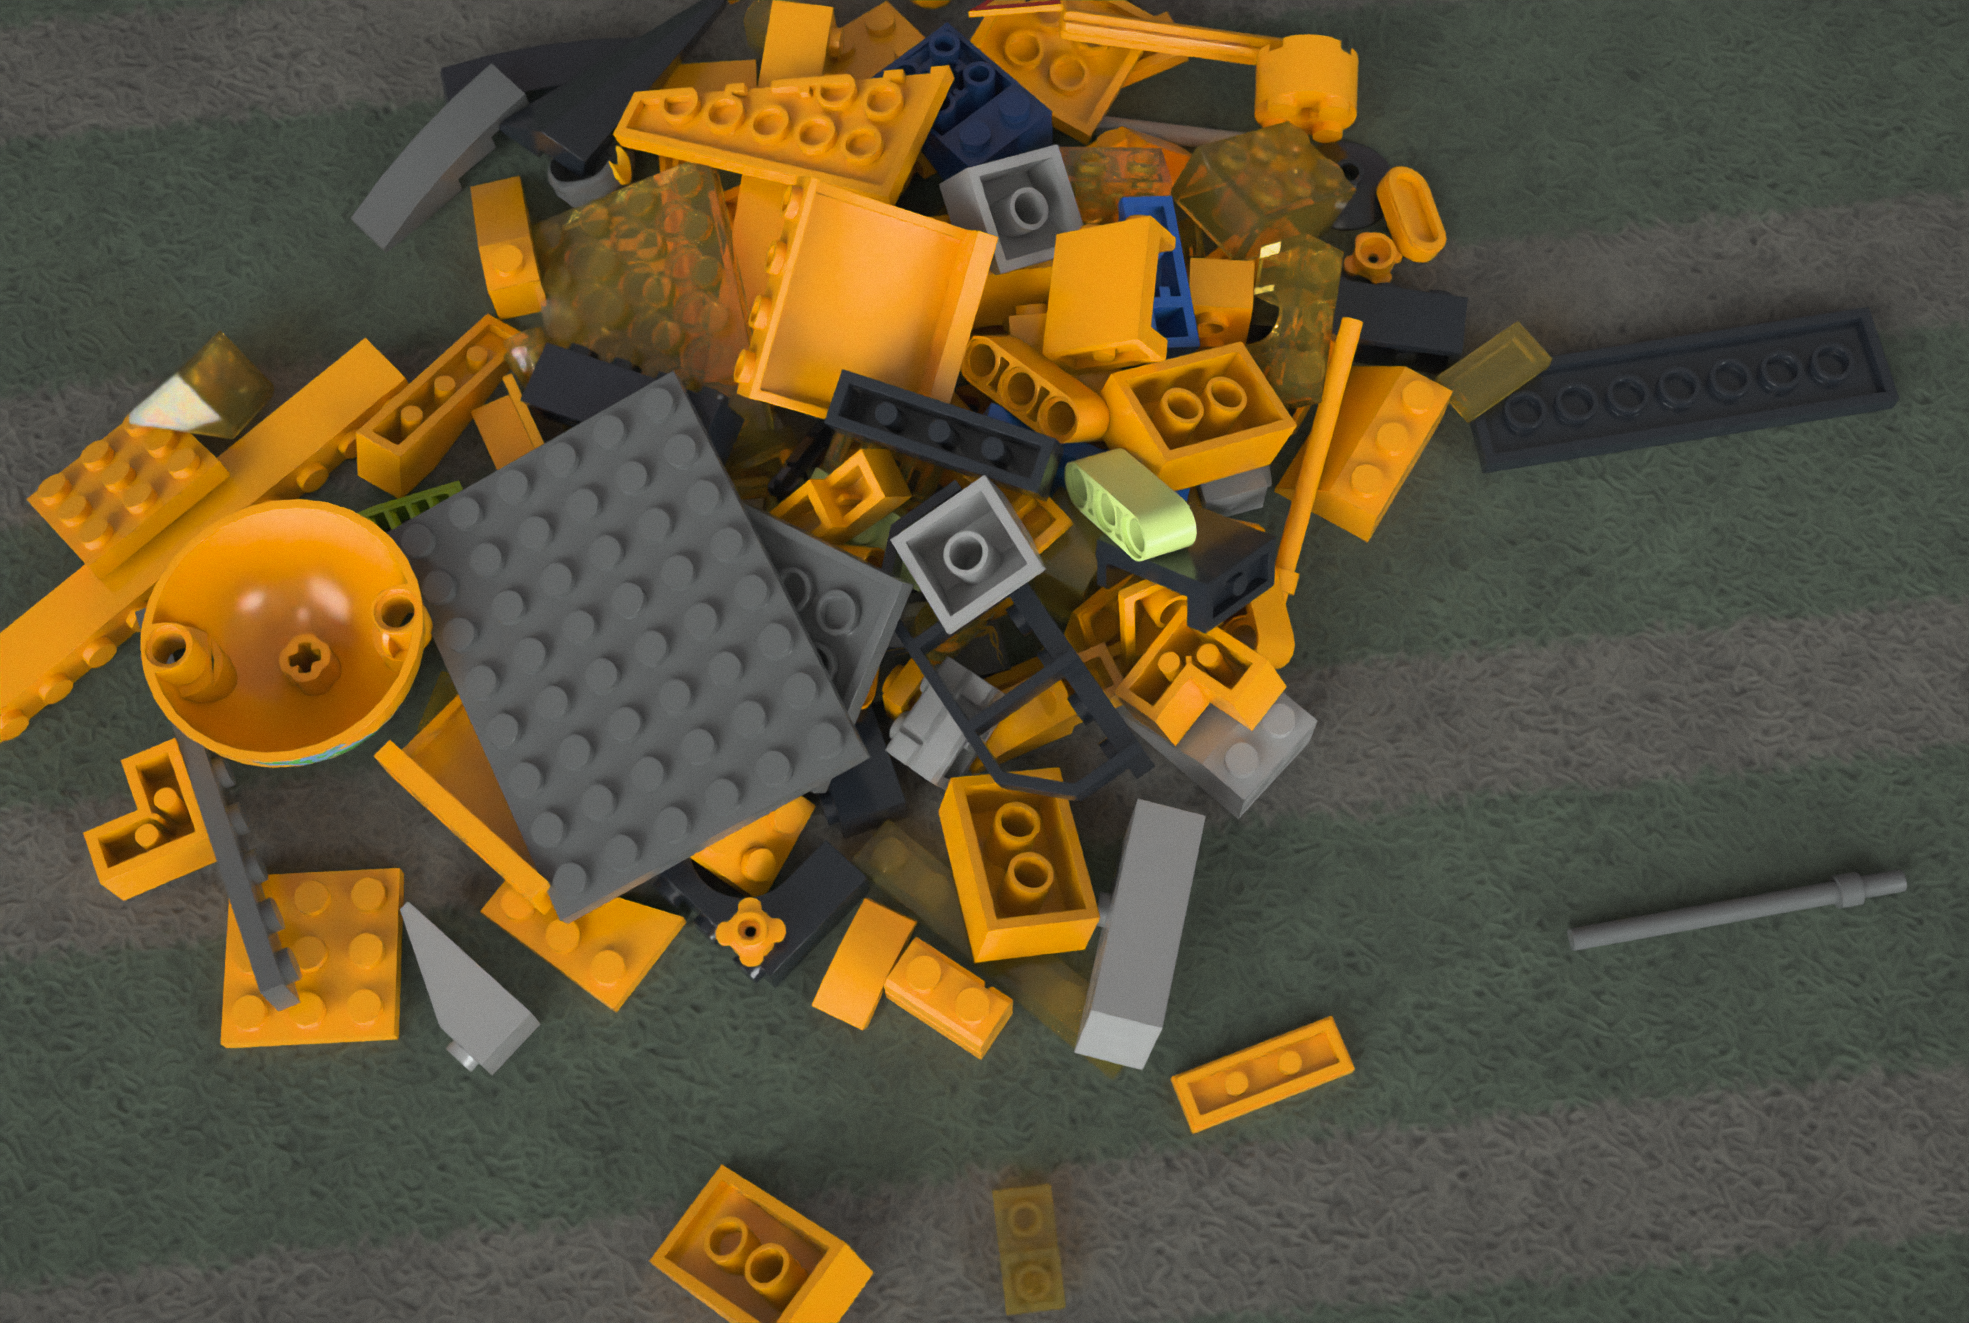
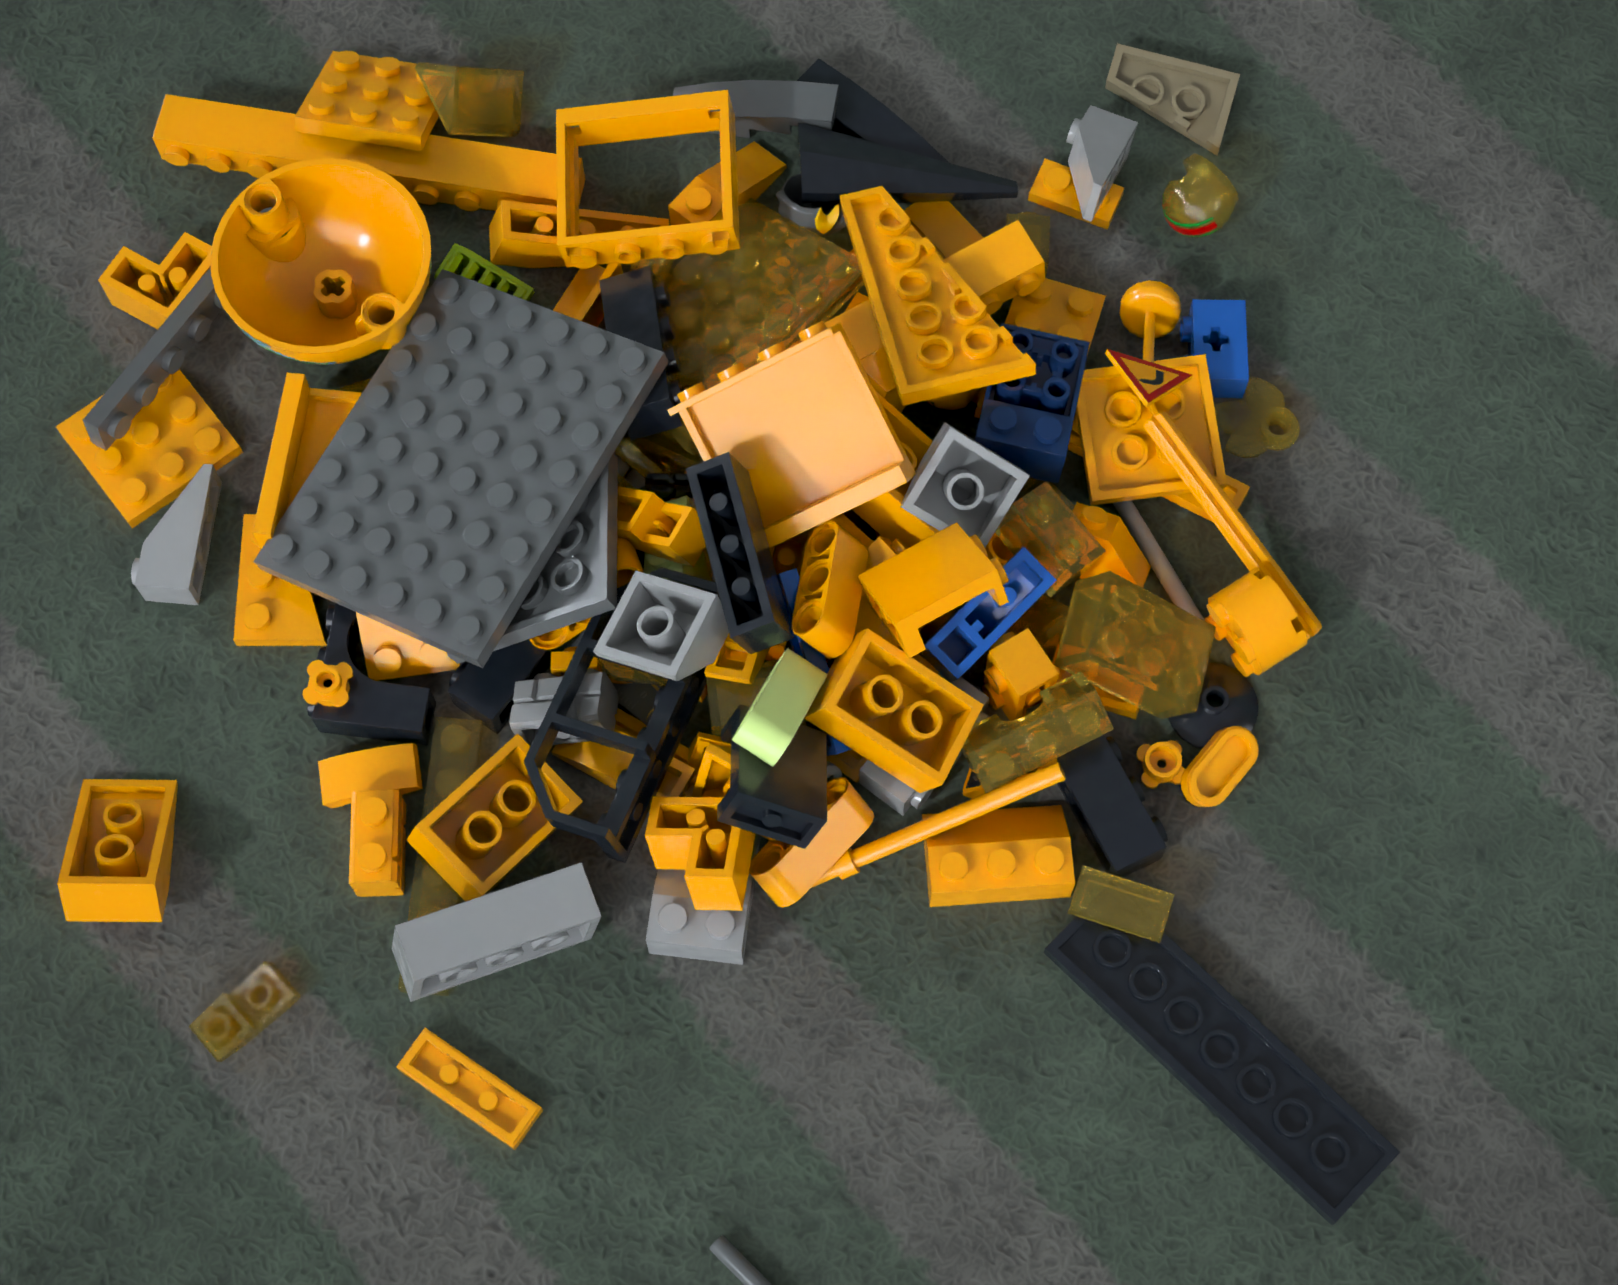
camera: 55 degrees right, 0 degrees up
(393, 236) = (642, 121): none -> light orange window

